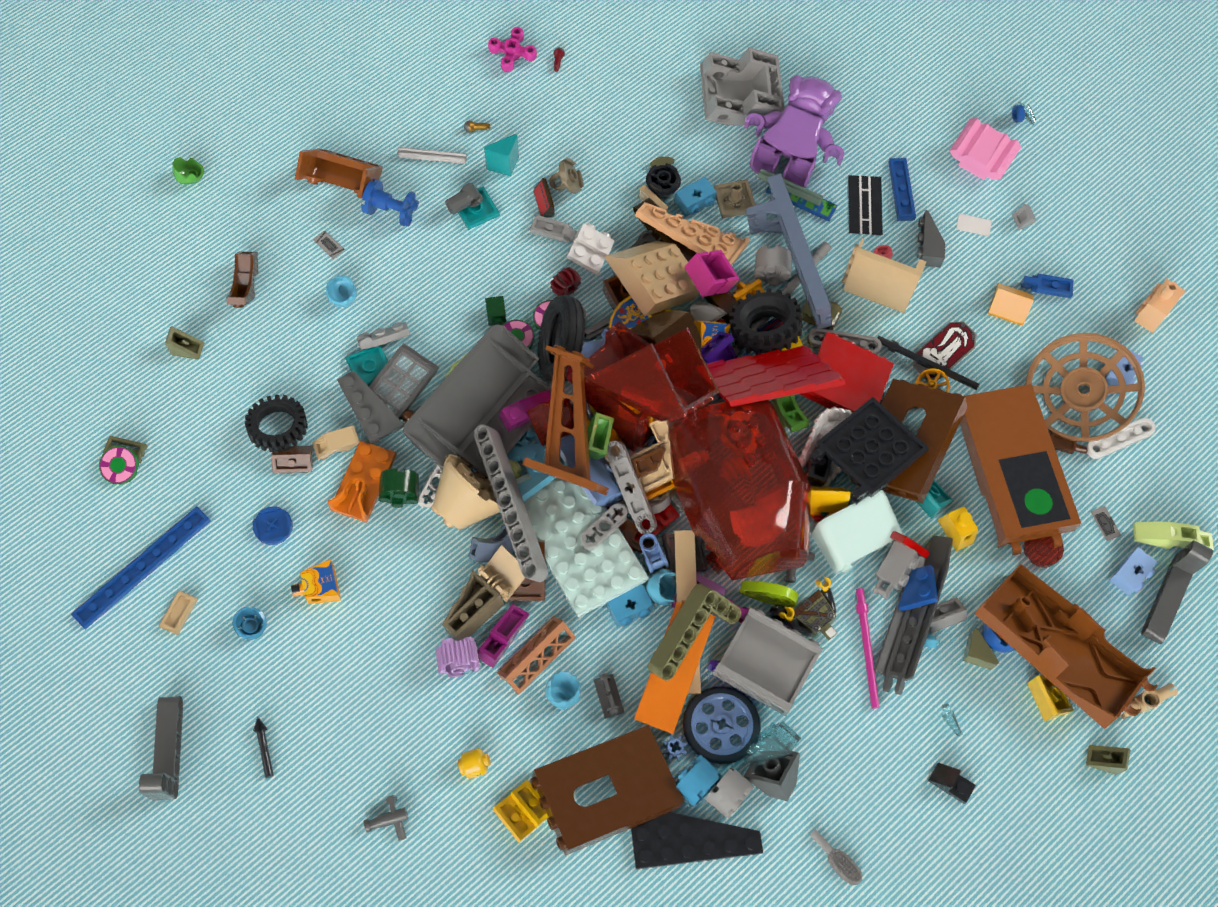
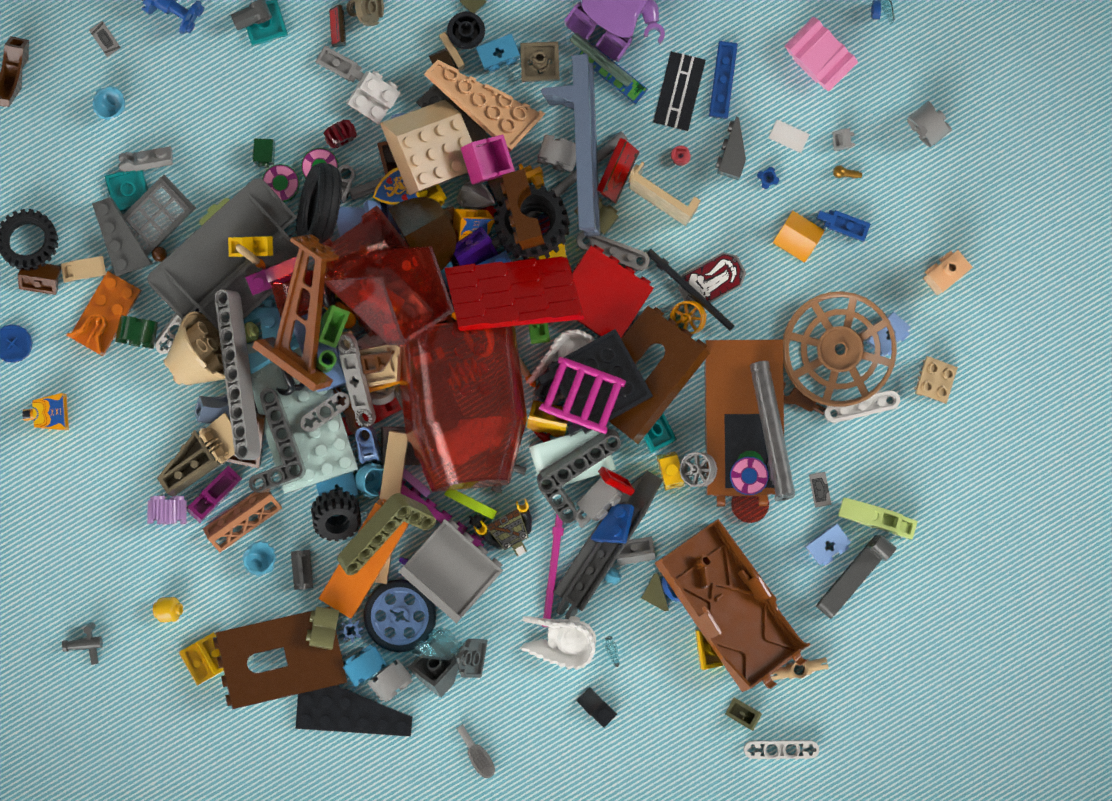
camera: 15 degrees right, 20 degrees up
(498, 386) = (257, 245): none -> yellow slope
(501, 390) = (250, 256): none -> tan piece
(562, 499) = (291, 385): none -> black piece
(568, 563) = (281, 444): none -> dark grey beam
(599, 468) = (327, 355): none -> bright green piece
(643, 640) = (333, 504): none -> black tyre
(647, 745) = (323, 627): none -> olive brick
(767, 319) = (527, 229): none -> reddish brown arch
(810, 750) = (471, 658): none -> dark grey tile
(832, 269) = (618, 170): none -> red tile
(847, 479) = (565, 412): none -> dark pink bar
(866, 537) = (573, 470): none -> dark grey beam
(906, 715) = (568, 644): none -> white piece
(967, 255) = (773, 179): none -> blue plate
(990, 514) = (698, 469): none -> light grey wheel
(1030, 244) = (840, 172): none -> pearl gold piece
(1042, 511) = (749, 475): none -> tile
(1072, 494) = (778, 462): none -> flat silver piece
(1098, 189) = (929, 124): none -> light grey brick
(1156, 788) = (781, 749): none -> white beam
(1178, 402) = (935, 379): none -> tan hinge

